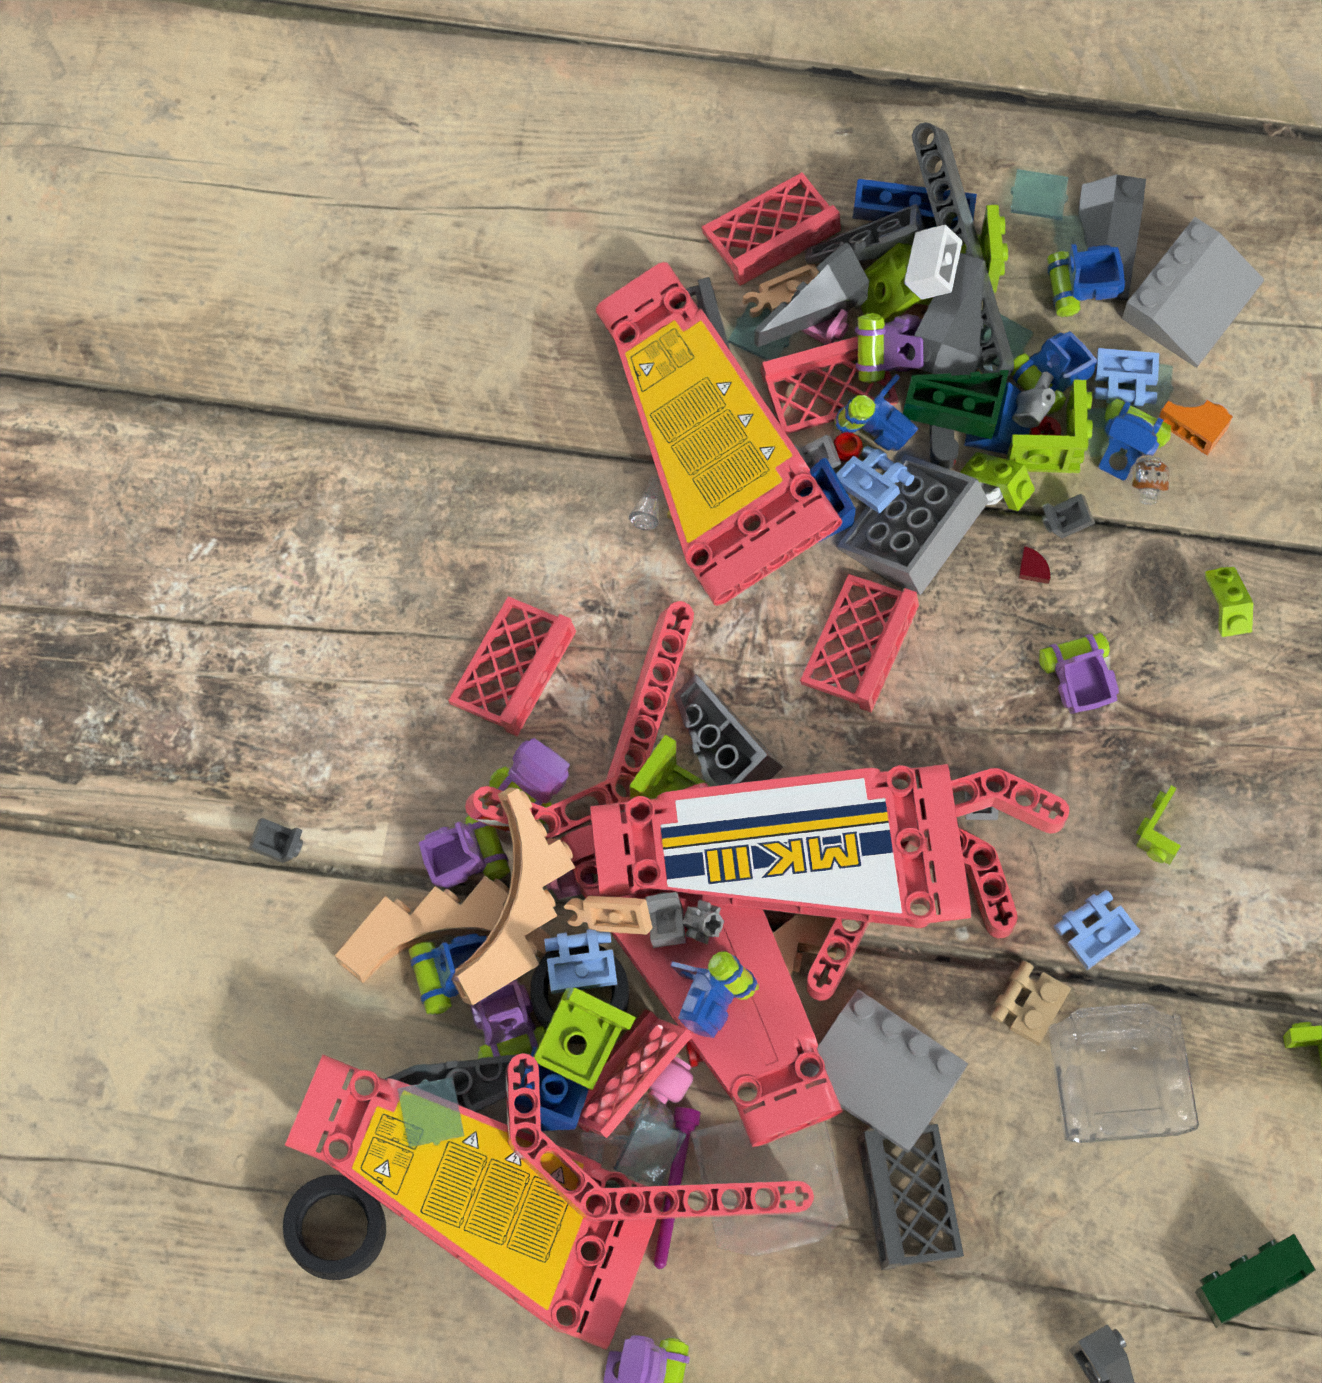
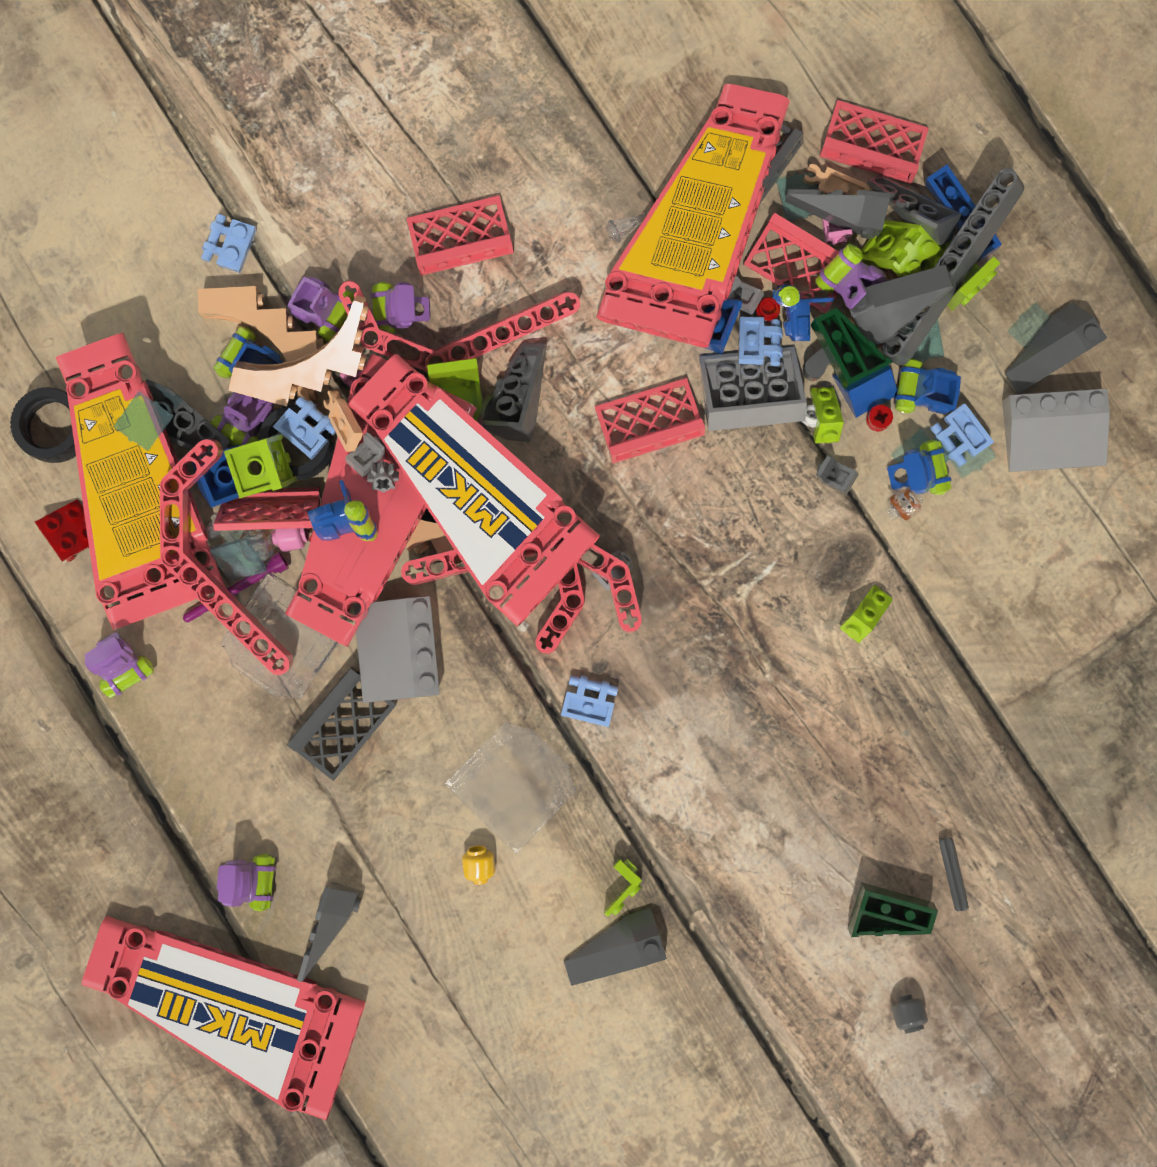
camera: 50 degrees right, 15 degrees up
(276, 841) = (238, 196): dark grey bracket -> none
(321, 888) = (236, 244): none -> light blue plate
(459, 1306) = (65, 530): none -> red hinge
(933, 262) = (922, 256): white brick -> none
(1034, 403) = (891, 395): light grey piece -> none
(1034, 567) = (787, 481): dark red tile -> none
(1039, 194) = (1043, 282): clear light blue piece -> none
(1039, 1009) = (513, 707): tan plate -> none
(1058, 453) = (872, 437): lime bracket -> none
(1081, 672) = (741, 565): medium lavender piece -> none
(1084, 276) = (1006, 356): blue piece -> none
(1155, 844) = (669, 697): lime bracket -> none
(1177, 1178) = (478, 864): none -> yellow head
(1197, 425) = (967, 505): orange arch -> none
(1254, 1279) = (453, 953): dark green wedge -> none

